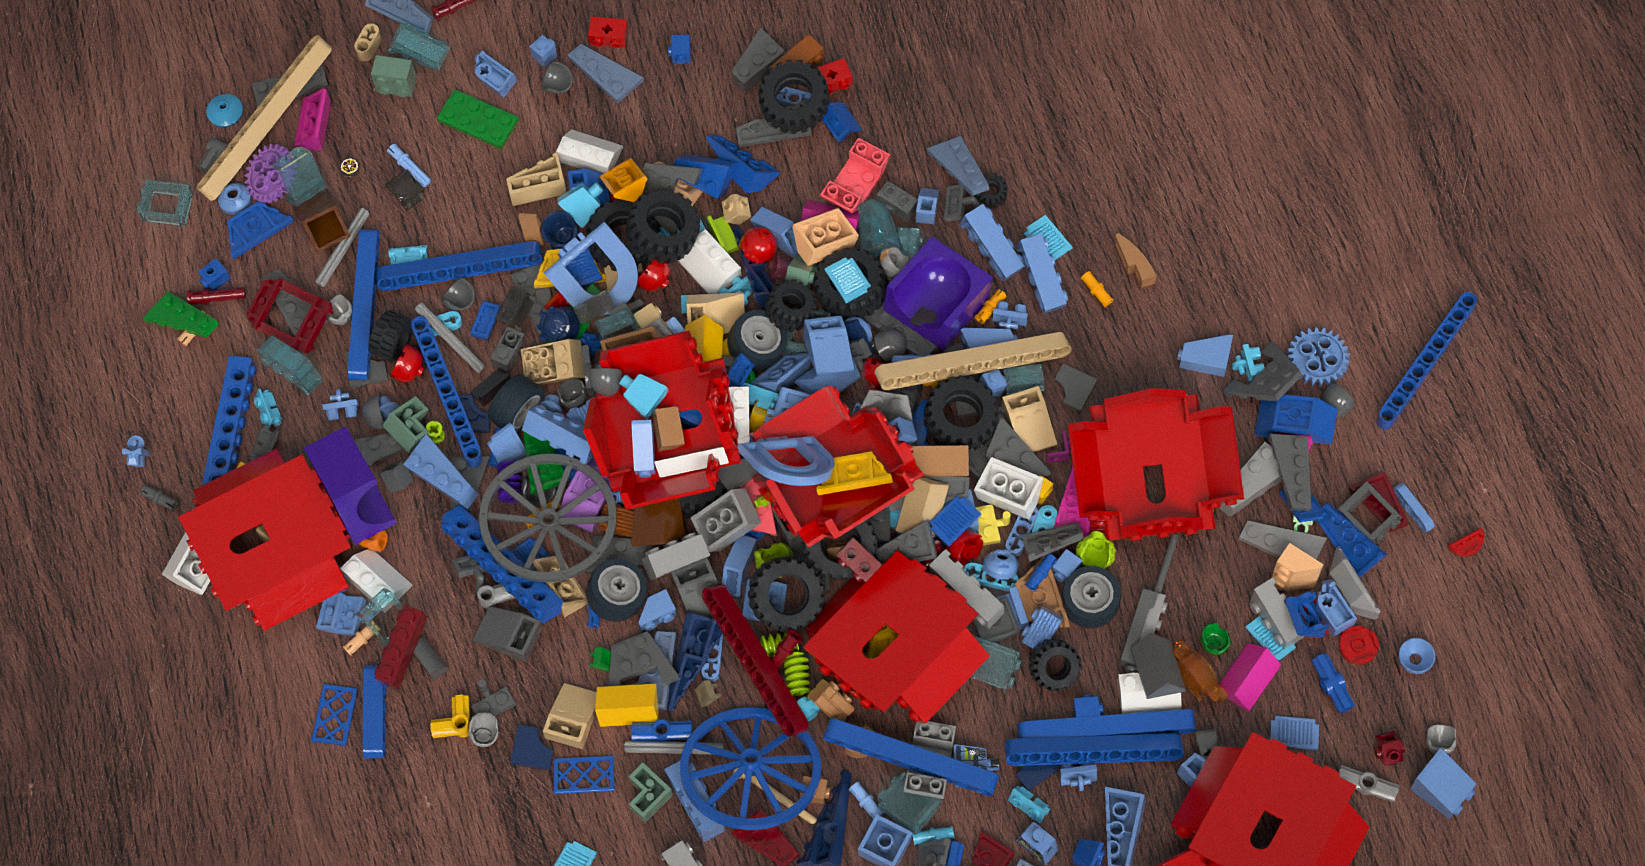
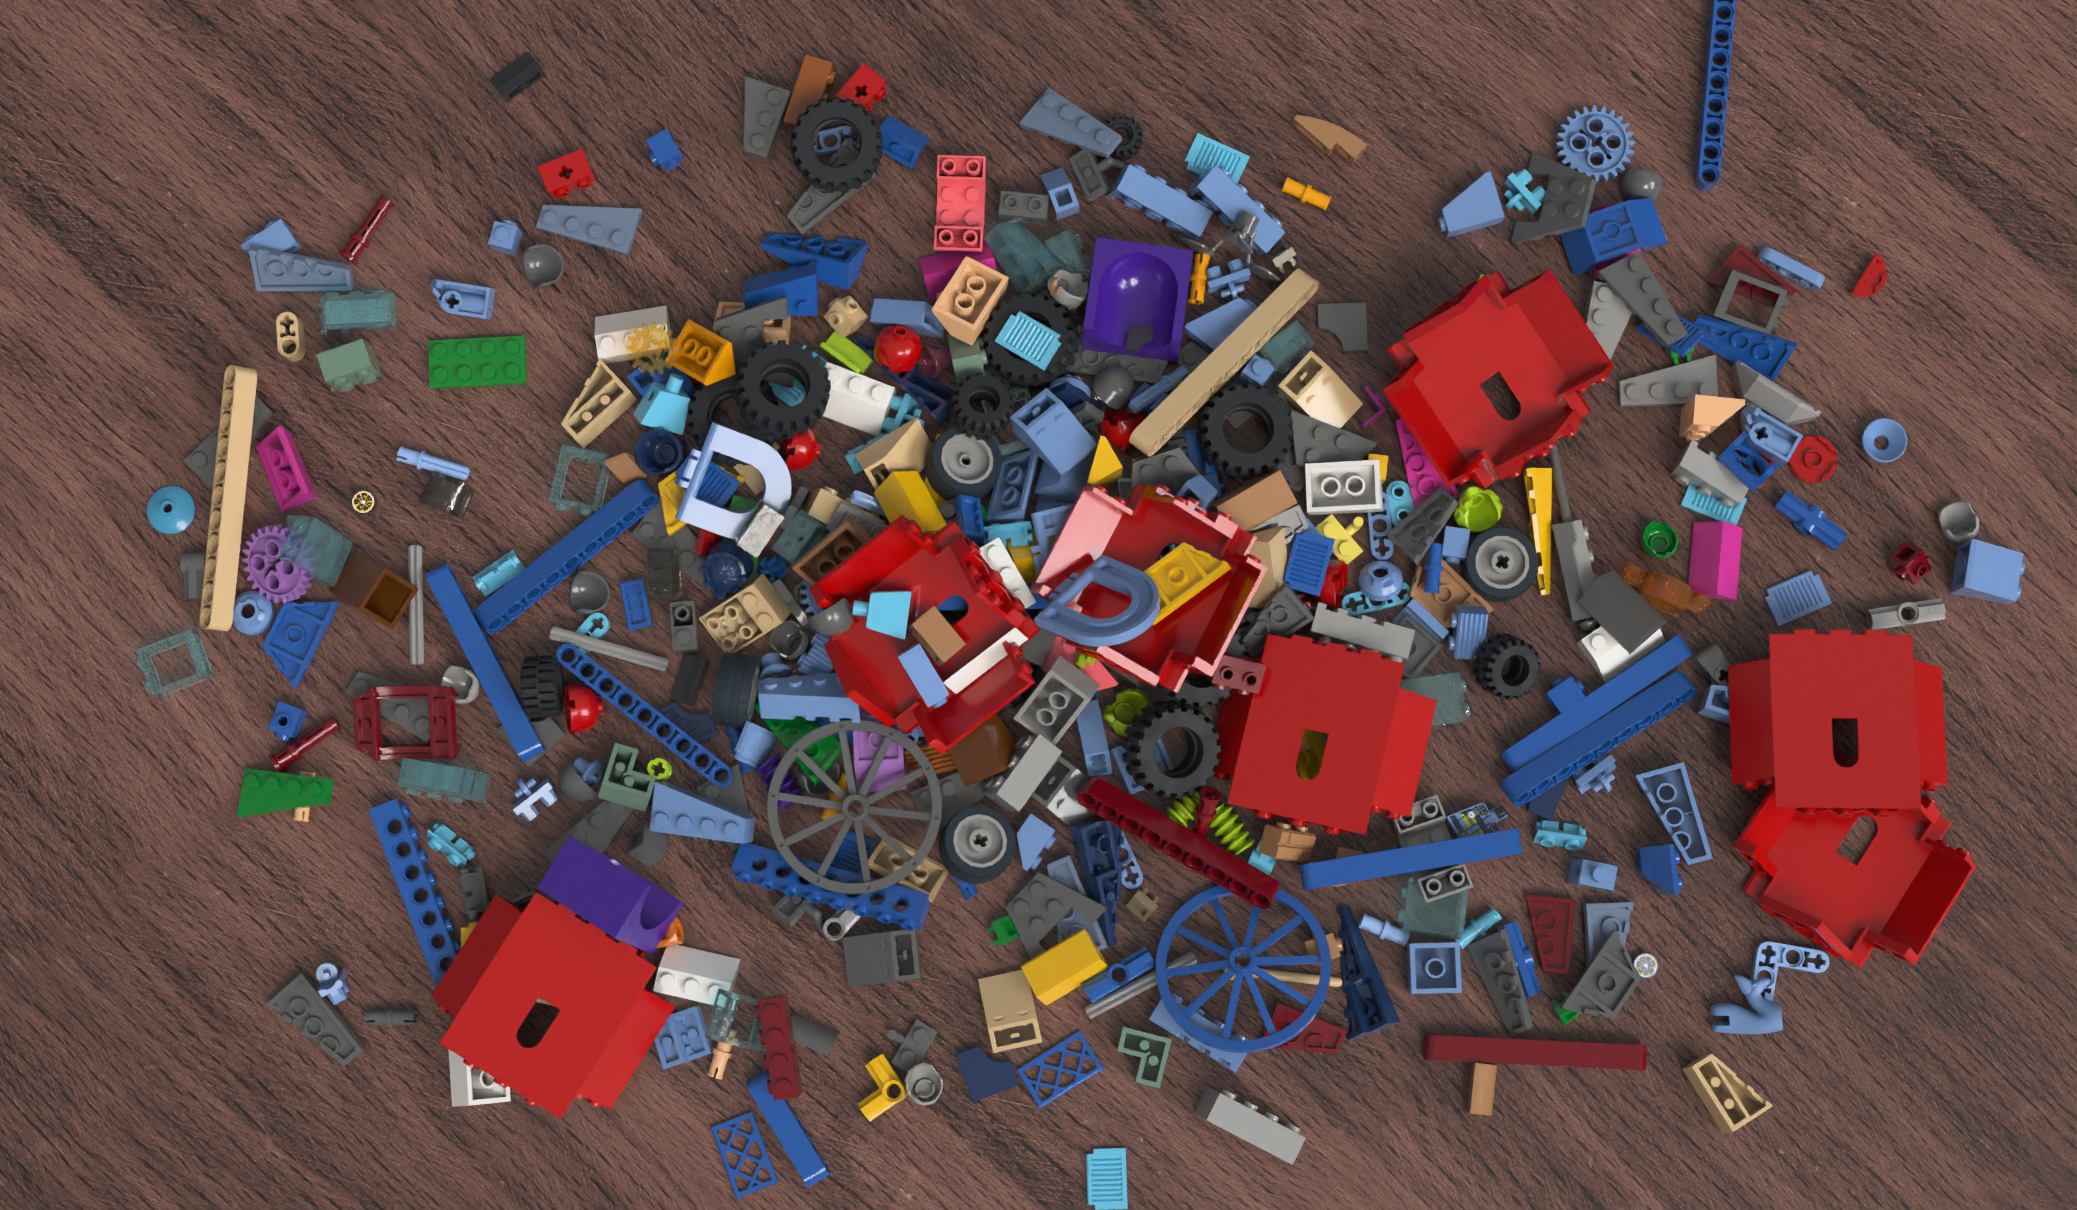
camera: 25 degrees left, 15 degrees up
(110, 472) = (317, 1019): none -> dark grey wing
(487, 213) = (586, 456): none -> clear light blue window
(594, 168) = (648, 338): none -> clear yellow gear
(850, 385) = (1105, 467): none -> yellow slope
(1036, 283) = (1243, 229): none -> dark grey plant
(1056, 318) = (1280, 255): none -> dark tan tile
(1142, 571) = (1539, 490): none -> yellow wedge

